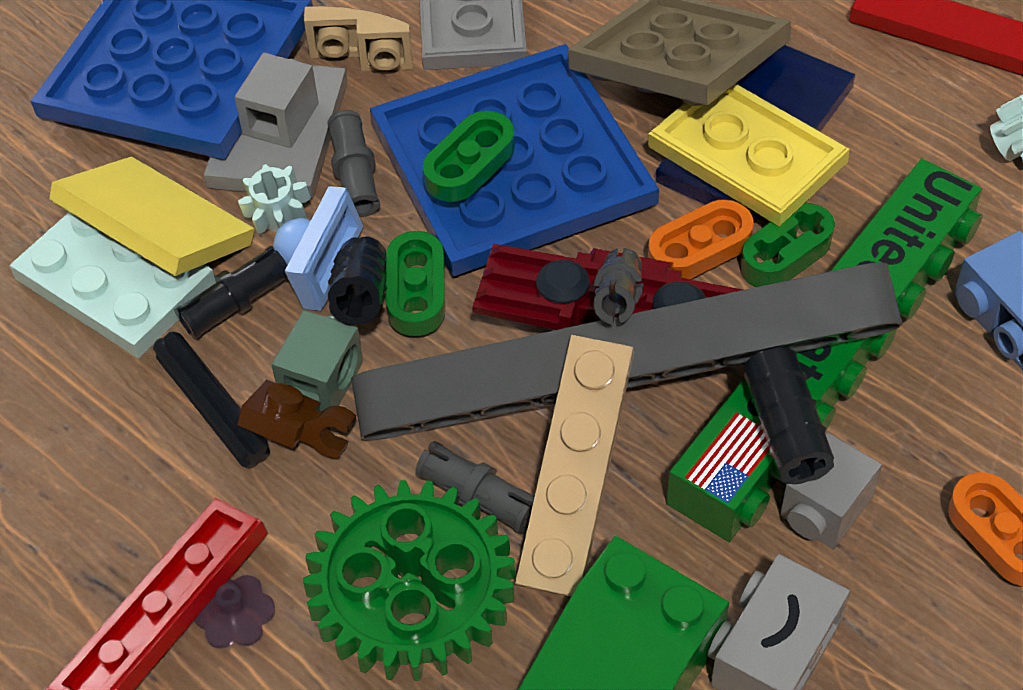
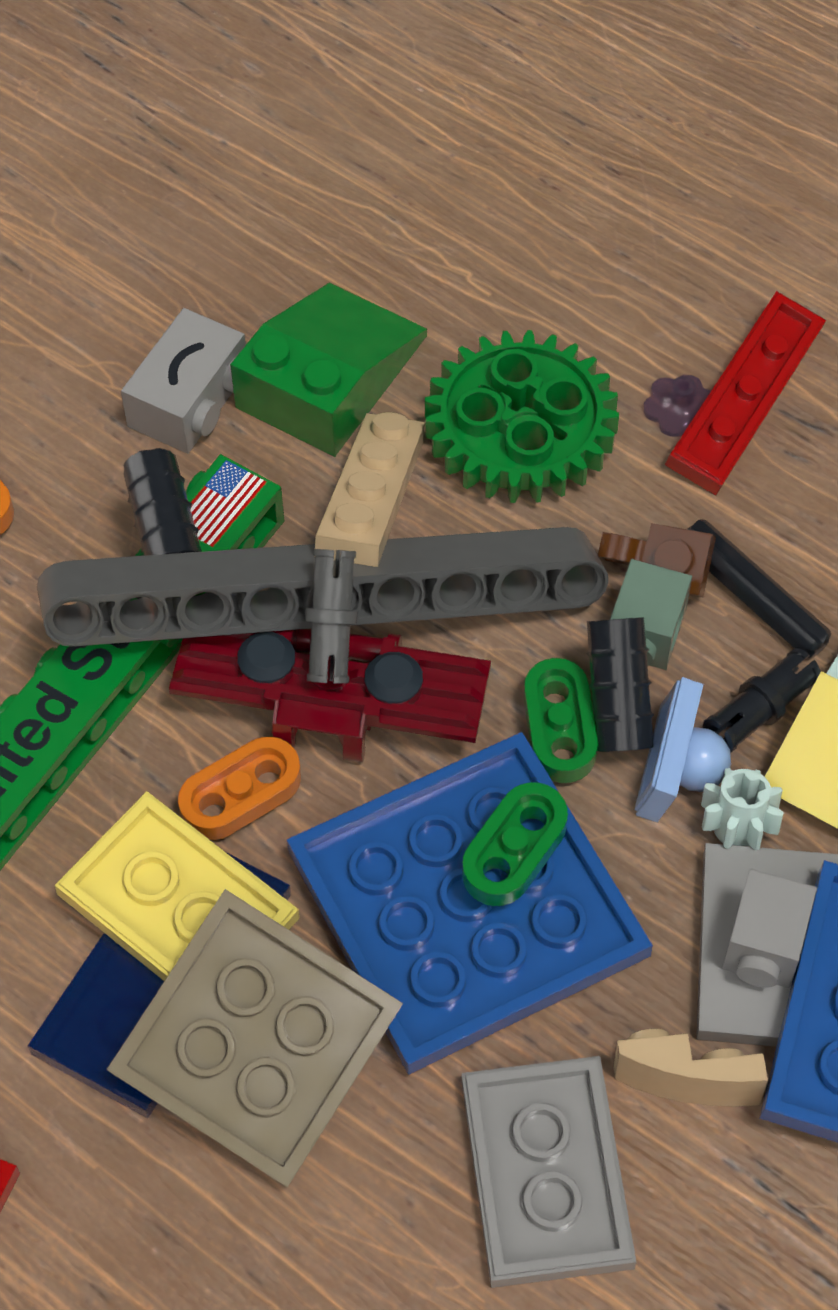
camera: 175 degrees right, 5 degrees up
(353, 161) = (660, 879): dark grey pin -> none
(476, 481) = (462, 506): dark grey pin -> none
(793, 252) = (133, 780): green beam -> none
(832, 503) = (107, 515): light grey brick -> none

